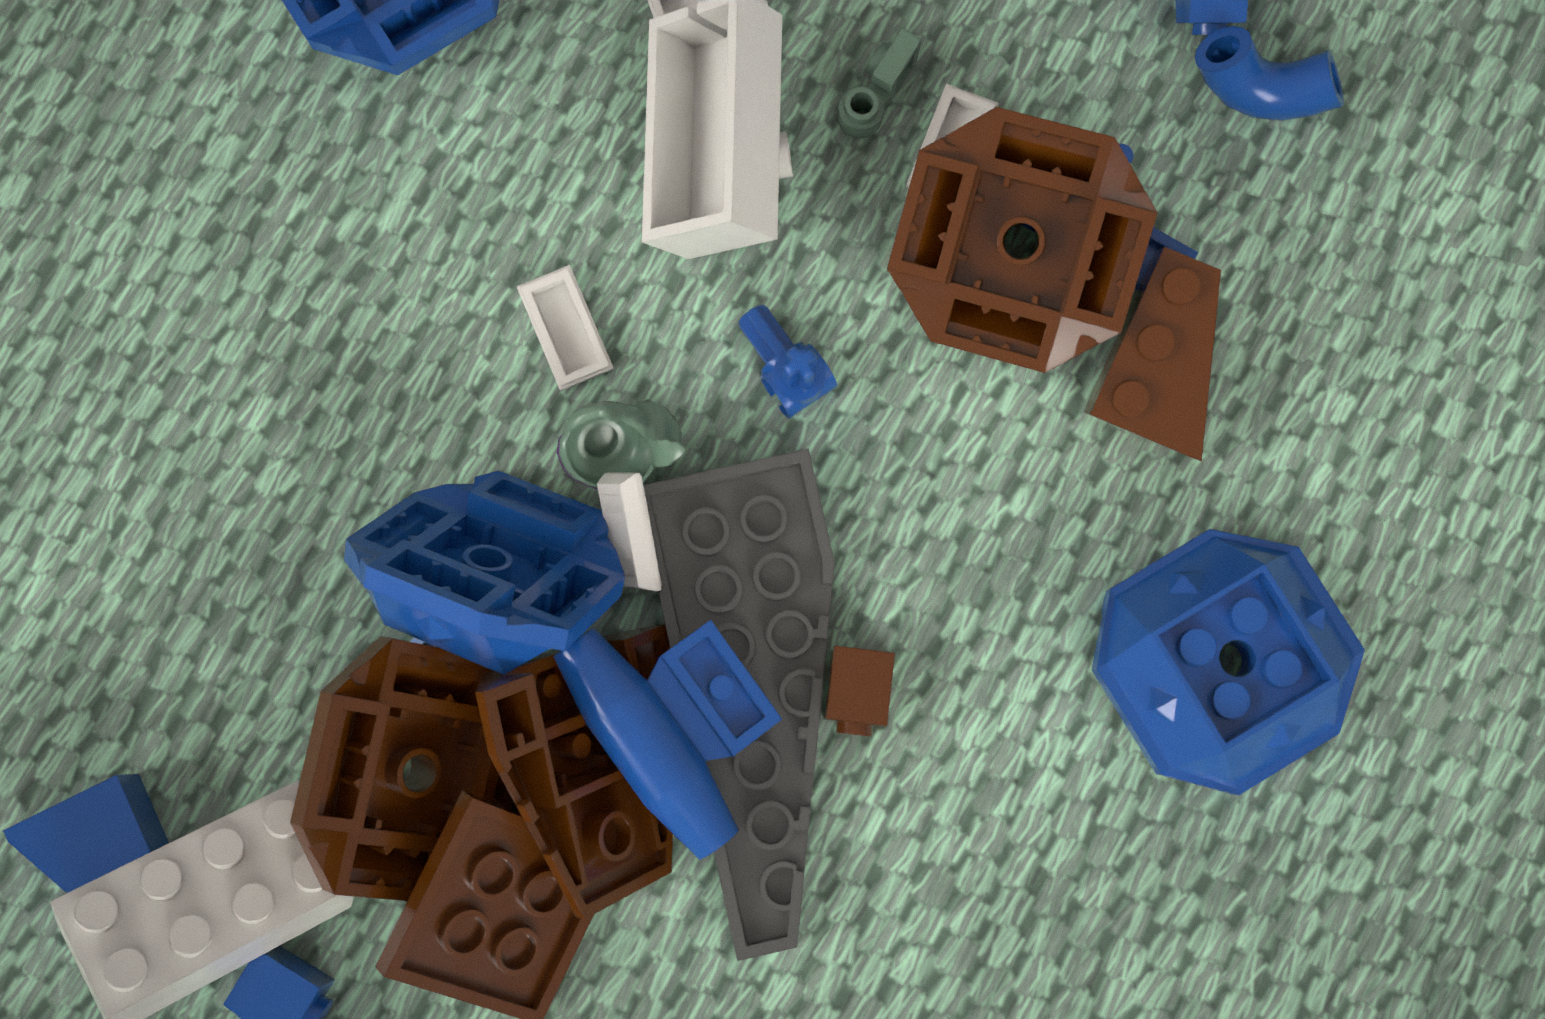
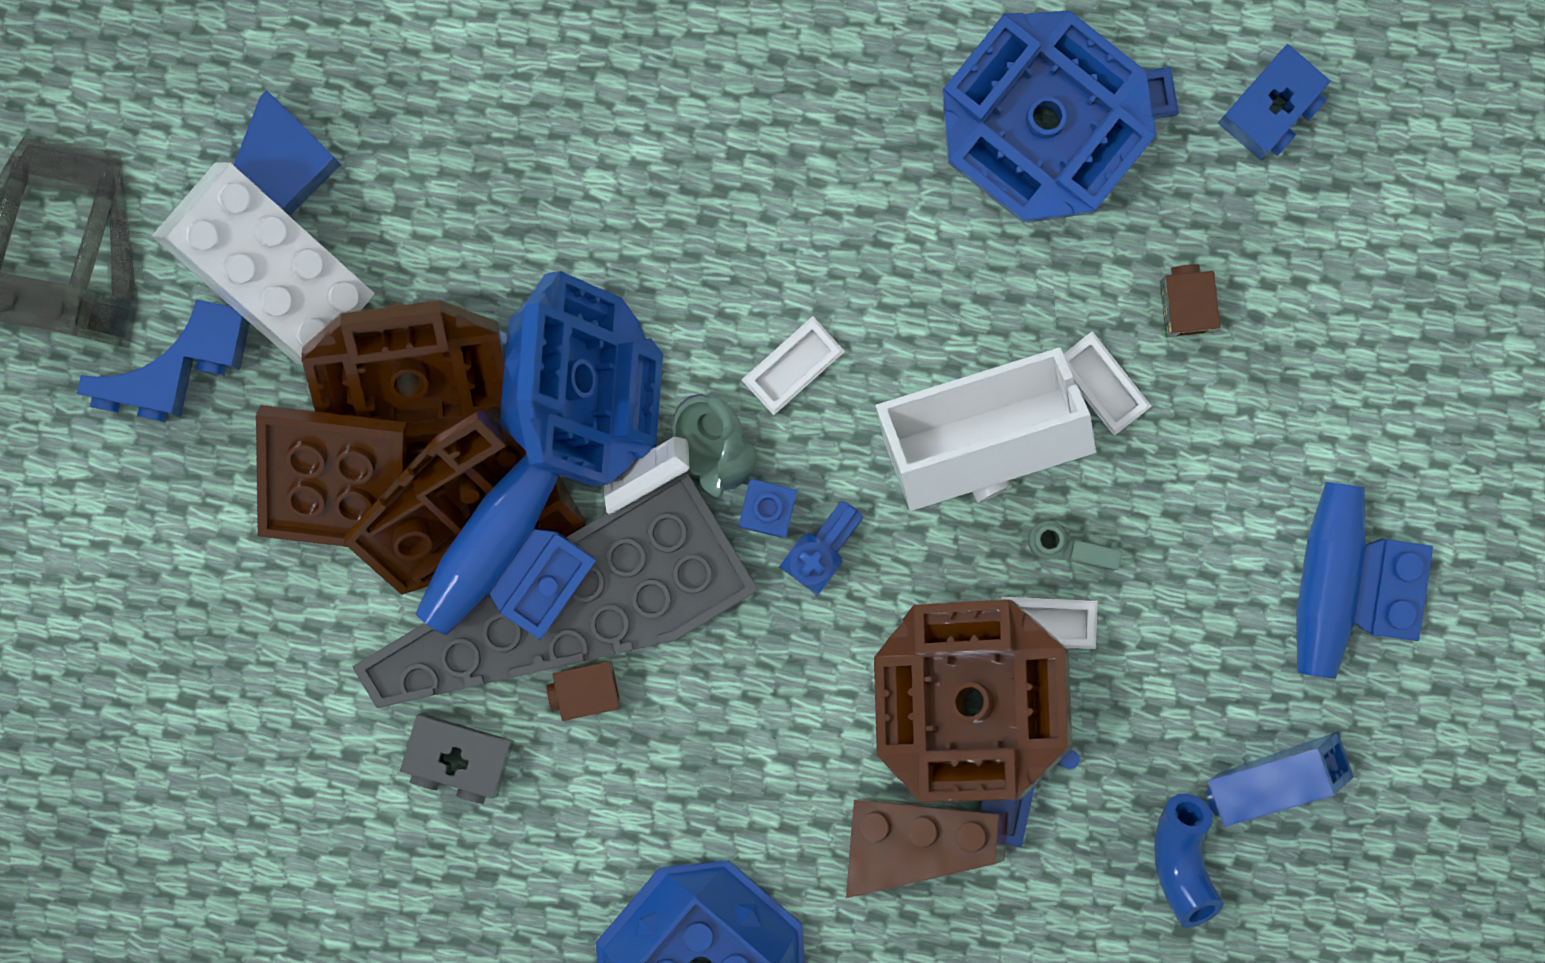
camera: 70 degrees right, 5 degrees up
(718, 405) = (767, 508): none -> blue brick
(856, 887) = (435, 737): none -> dark grey brick

